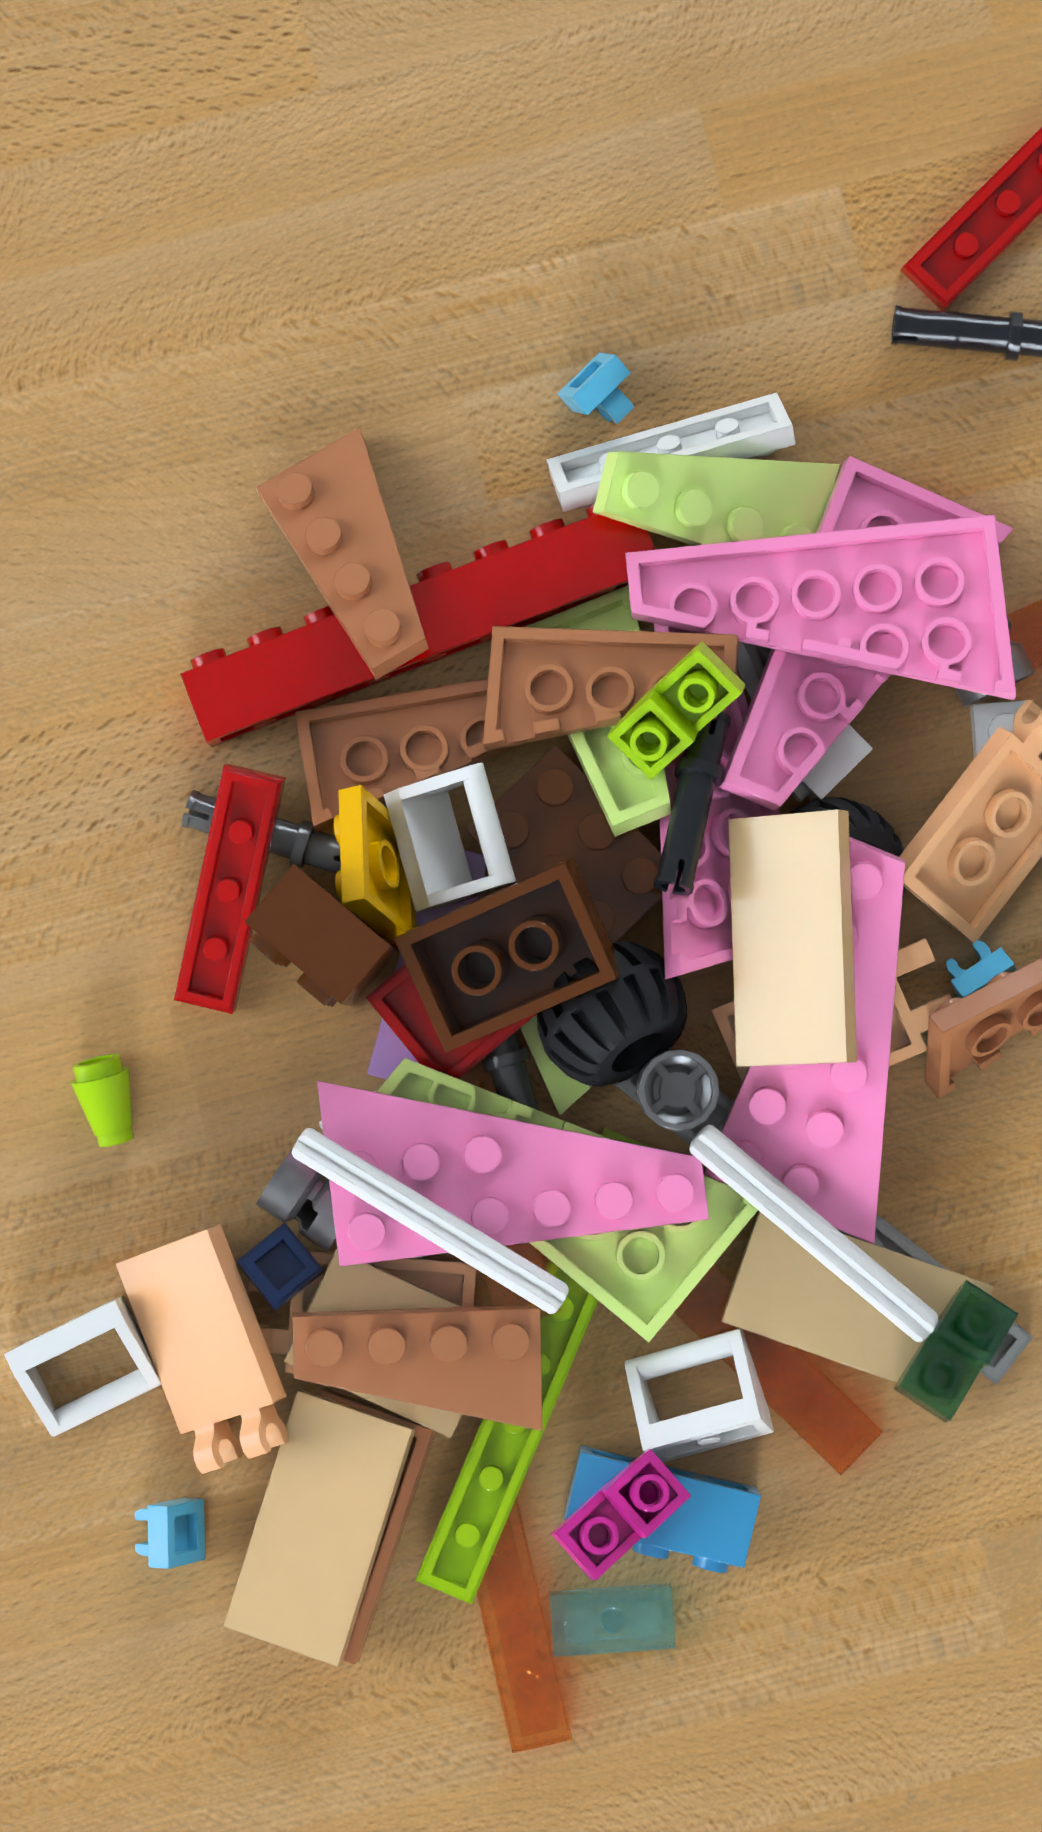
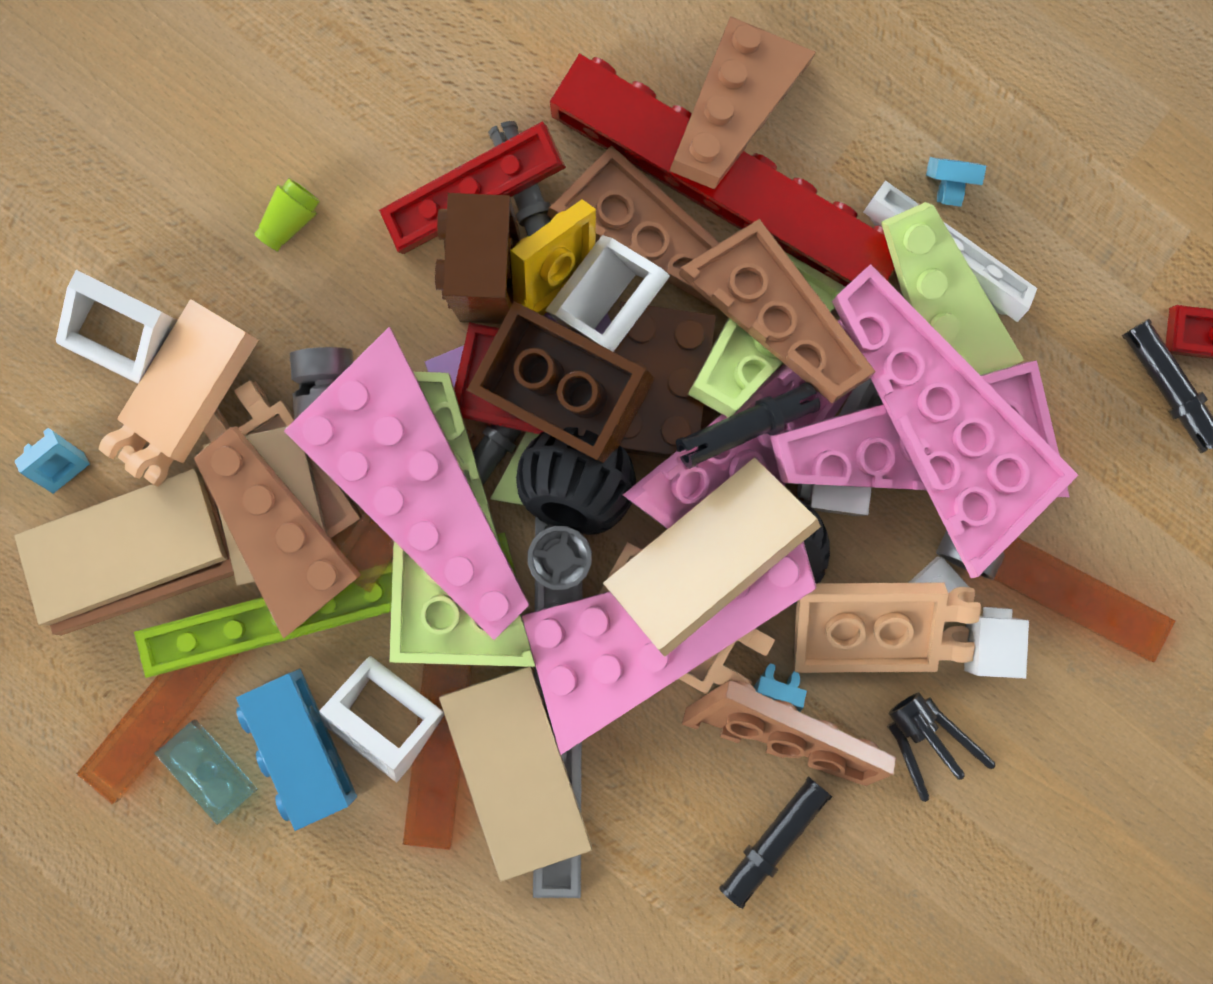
camera: 45 degrees right, 0 degrees up
(280, 1267) = (260, 397): dark blue tile -> none
(430, 1220) = (353, 463): white axle -> none
(621, 1514) = (267, 728): dark pink slope -> none
(676, 710) = (798, 368): lime slope -> none
(814, 1233) = (536, 713): white axle -> none
(956, 1351) = (532, 858): clear green slope -> none

